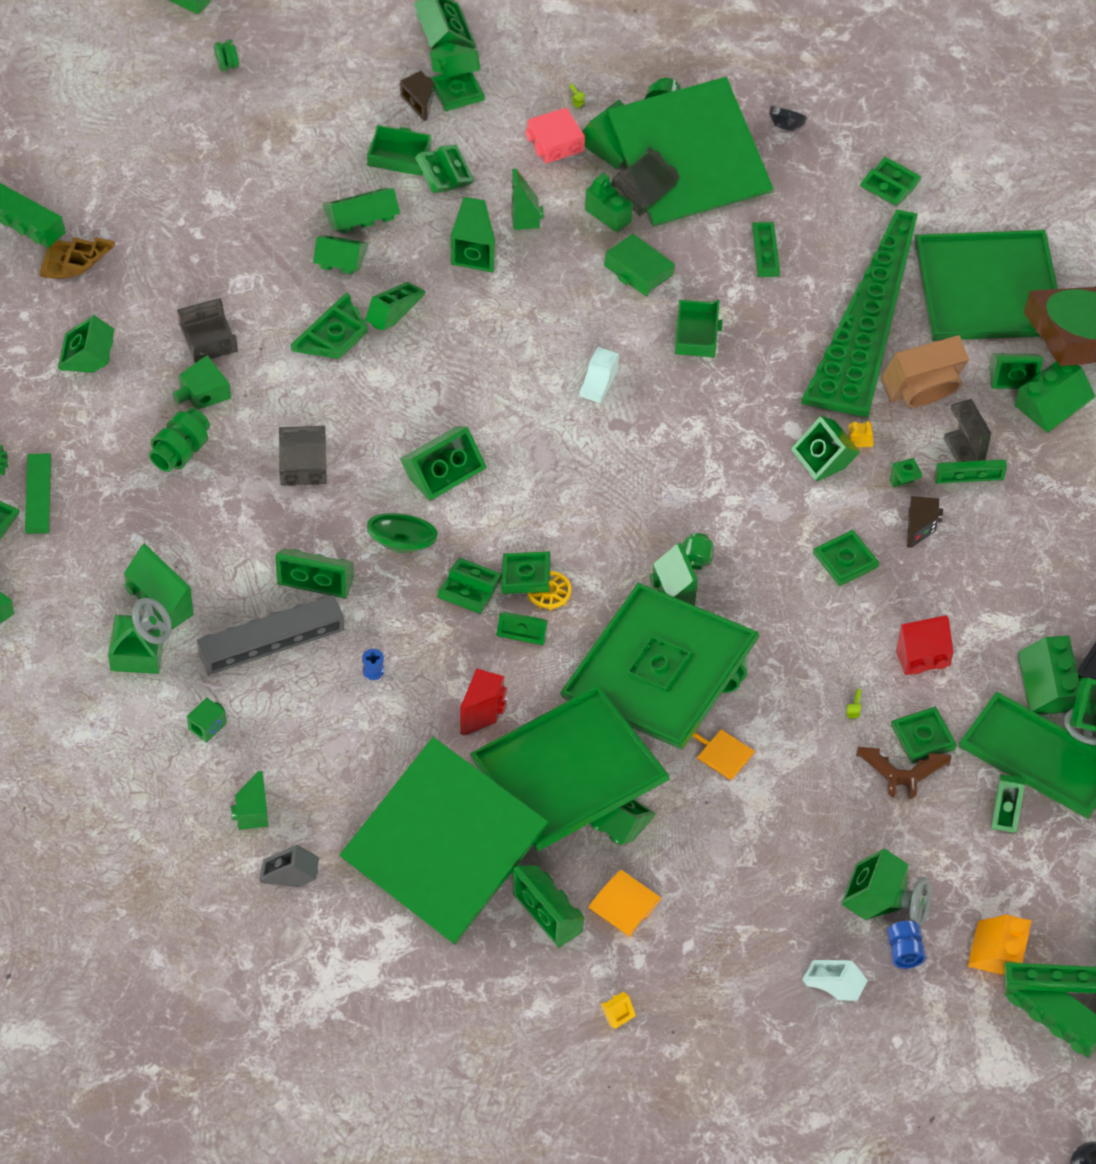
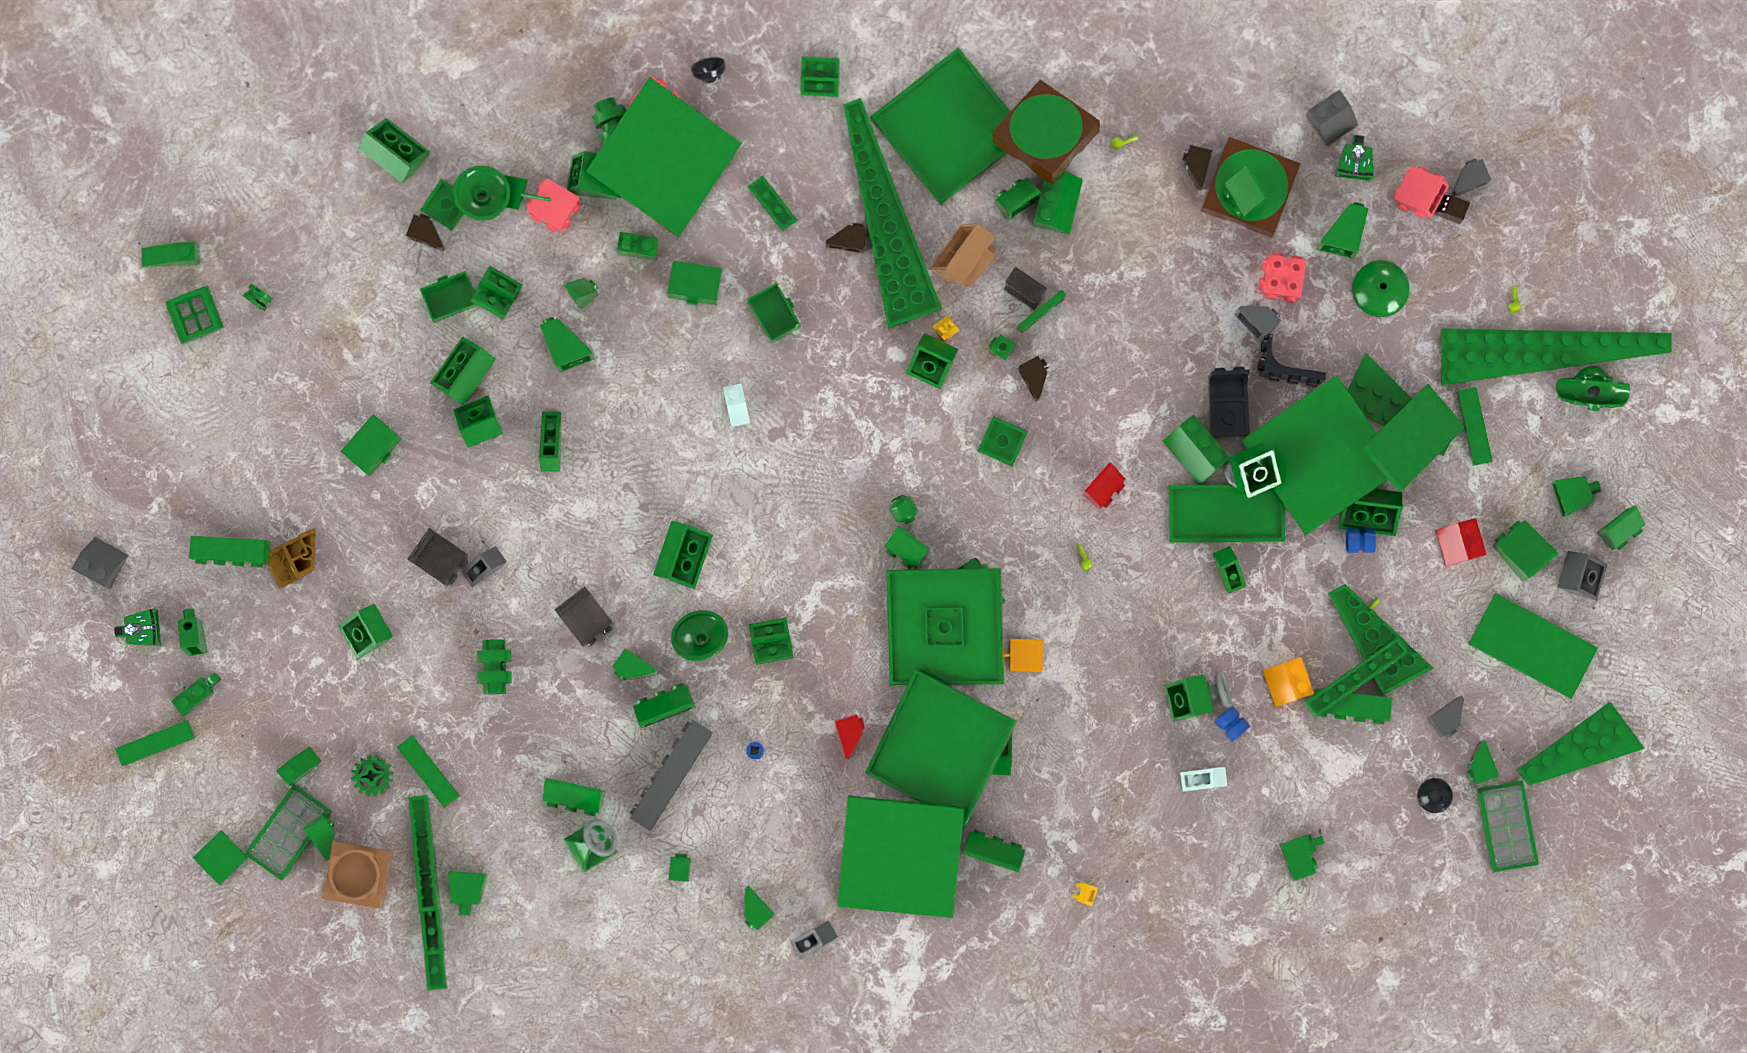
camera: 30 degrees left, 30 degrees up
(159, 42) = (194, 314): none -> green piece
(202, 385) = (470, 606): green torso -> none
(226, 216) = (371, 445): none -> green container
(244, 360) = (484, 566): none -> dark grey slope
(313, 517) = (632, 667): none -> green slope
(333, 331) = (525, 494): green wing -> none
(454, 59) = (428, 185): green slope -> none
(496, 89) = (481, 181): none -> green dish
(522, 628) = (832, 653): green plate -> none
(525, 107) = (517, 189): none -> green piece
(526, 572) = (802, 606): green tile -> none
(555, 590) = (825, 607): yellow wheel -> none
(578, 98) = (543, 152): lime hand -> none
(624, 903) = (1038, 814): light orange slope -> none
(646, 181) = (653, 212): clear smoke panel -> none
(818, 310) = (849, 238): none -> dark brown slope
(891, 1121) = (1298, 858): none -> green hinge
(903, 777) = (1144, 597): reddish brown piece -> none
(923, 734) = (1142, 551): green tile -> none

